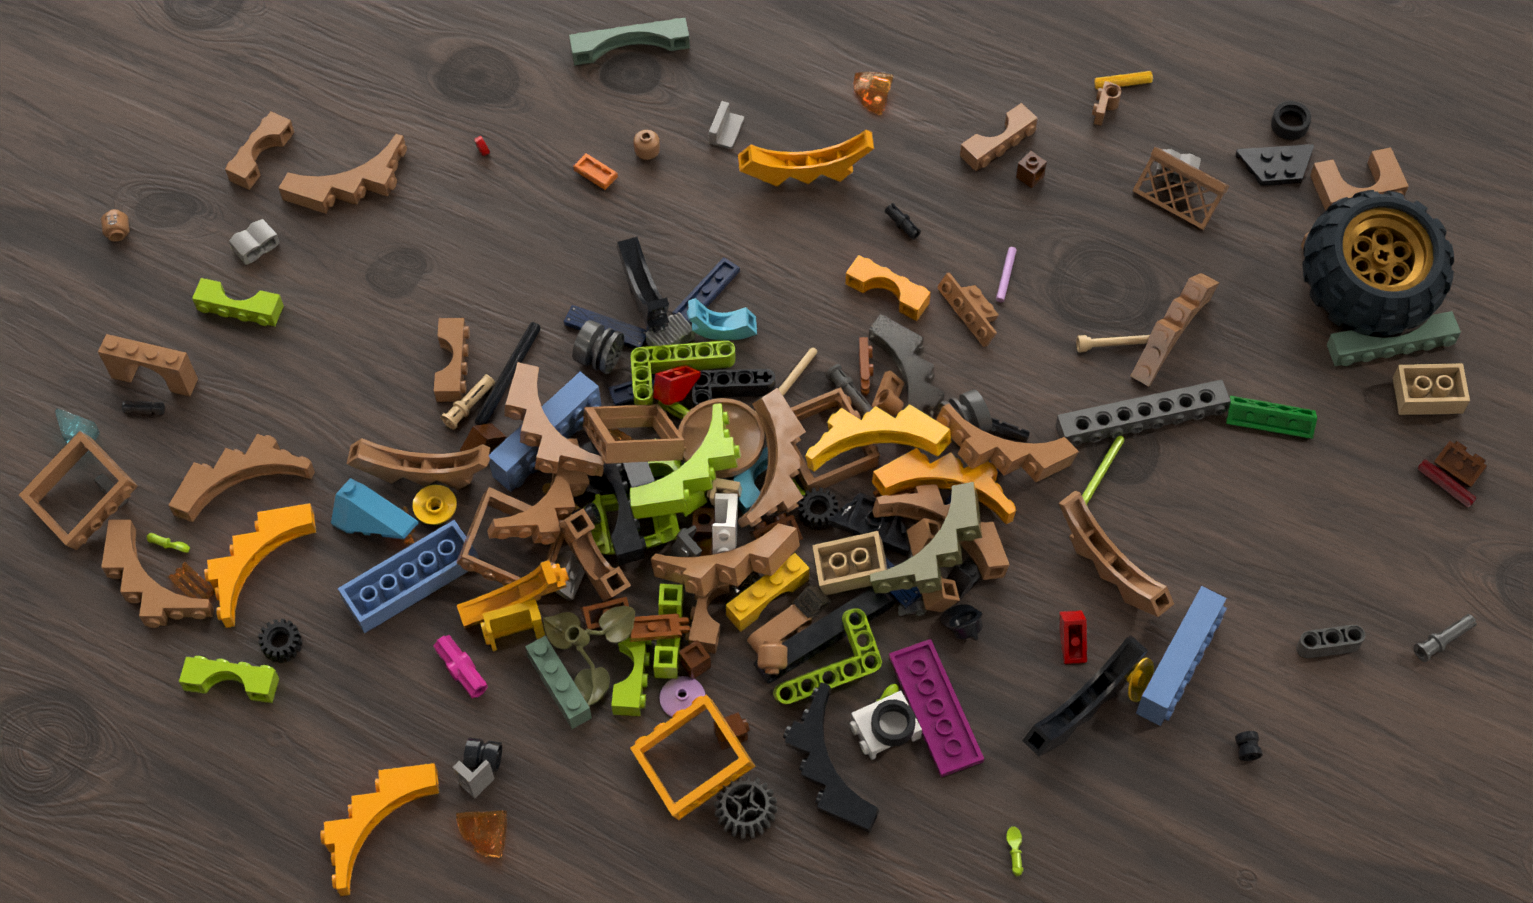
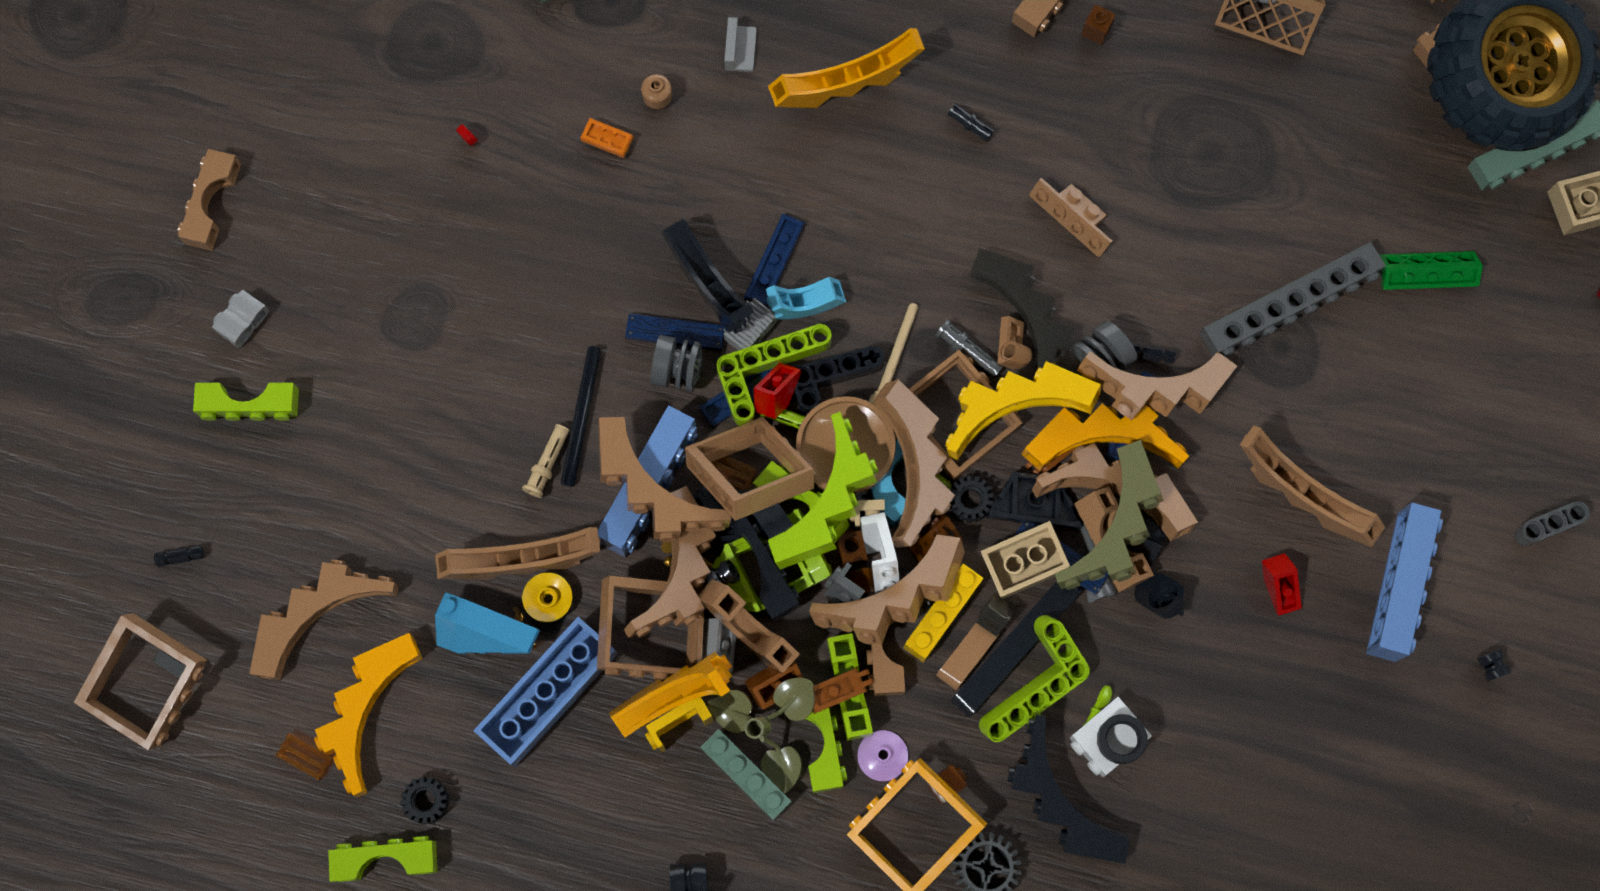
camera: 15 degrees left, 15 degrees up
(72, 424) = (110, 604): clear light blue slope -> none
(115, 225) = (70, 335): medium nougat head -> none
(125, 355) = (141, 506): medium nougat arch -> none
(157, 602) = (217, 748): medium nougat arch -> none
(165, 542) = (271, 715): lime piece -> none
(349, 186) = (330, 222): medium nougat arch -> none
(449, 381) = (518, 443): medium nougat arch -> none
(460, 666) = (633, 782): dark pink piece -> none
(483, 434) = (576, 506): reddish brown slope -> none
(695, 659) = (887, 713): reddish brown brick -> none
(772, 656) = (973, 694): medium nougat head -> none
(866, 369) = (977, 316): dark orange hinge -> none
(867, 275) = (950, 199): light orange arch -> none
(936, 708) = (1157, 702): magenta plate -> none
(1006, 274) = (1101, 162): lavender bar -> none
(1014, 839) = (1275, 831): lime piece -> none
(1081, 707) = (1316, 660): black arch -> none
(1085, 343) = (1208, 229): tan piece -> none
(1102, 468) = (1262, 384): lime piece -> none
(1139, 679) = (1364, 619): yellow dish -> none
(1167, 331) = (1304, 194): medium nougat arch -> none

